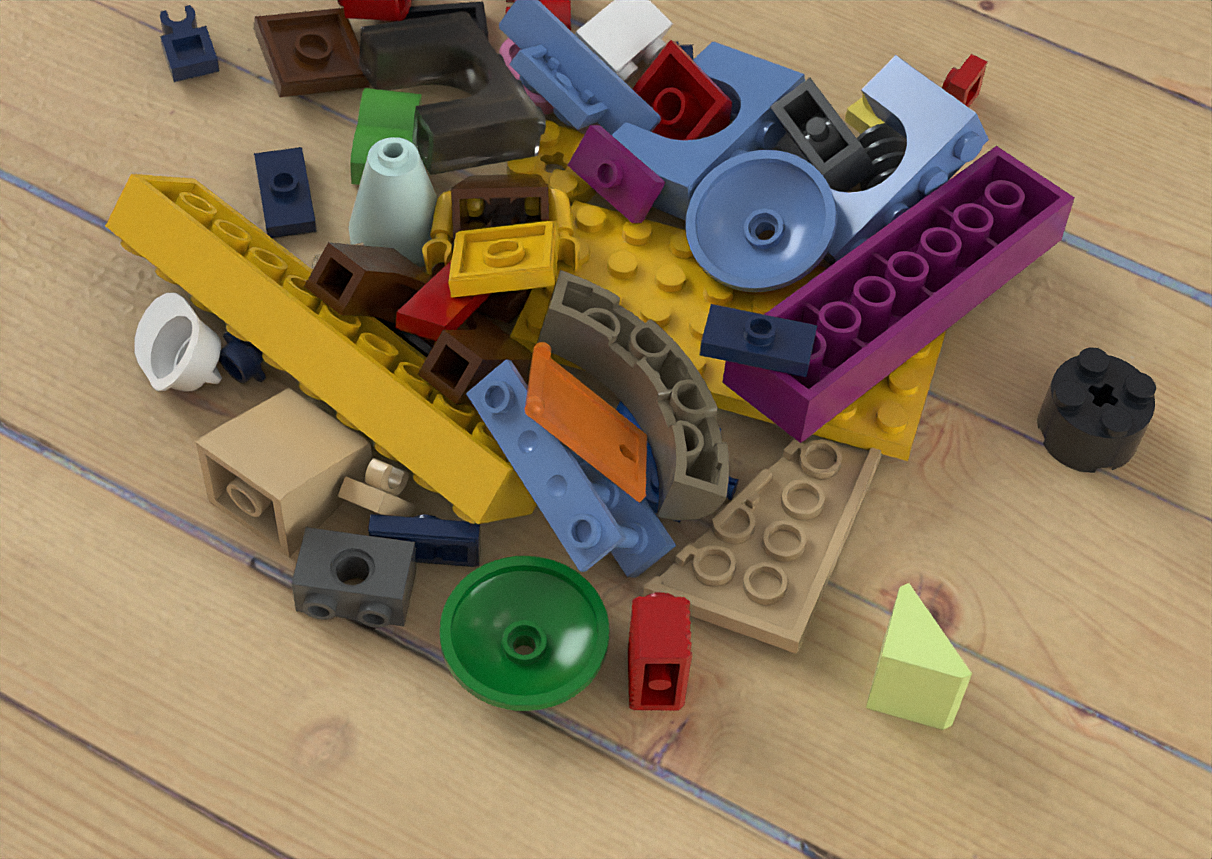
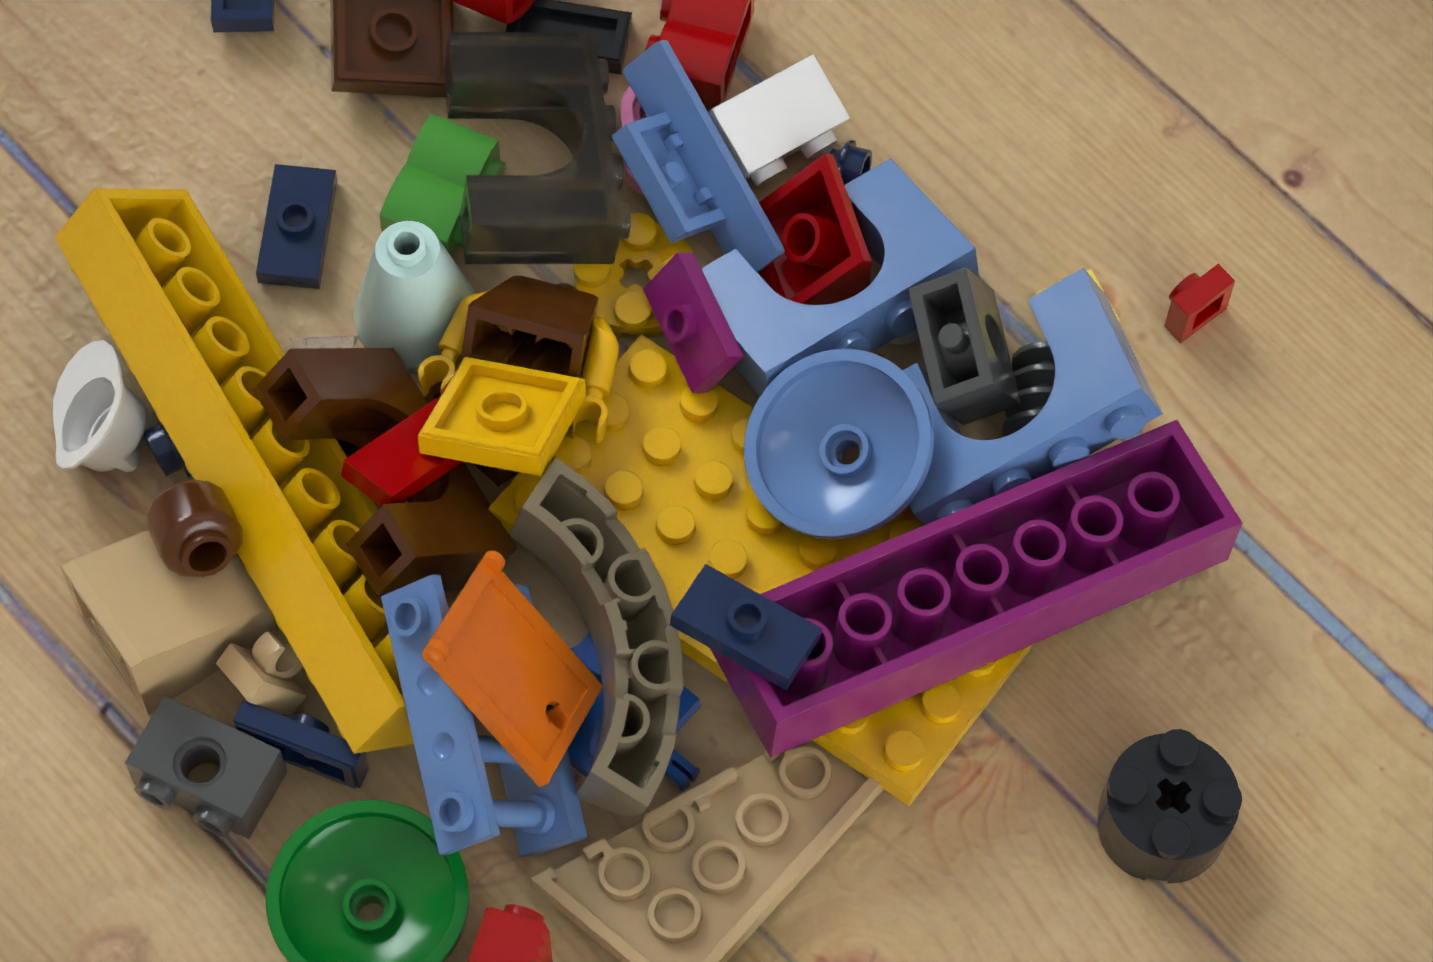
camera: 20 degrees right, 10 degrees up
(293, 392) = (194, 528): none -> reddish brown head

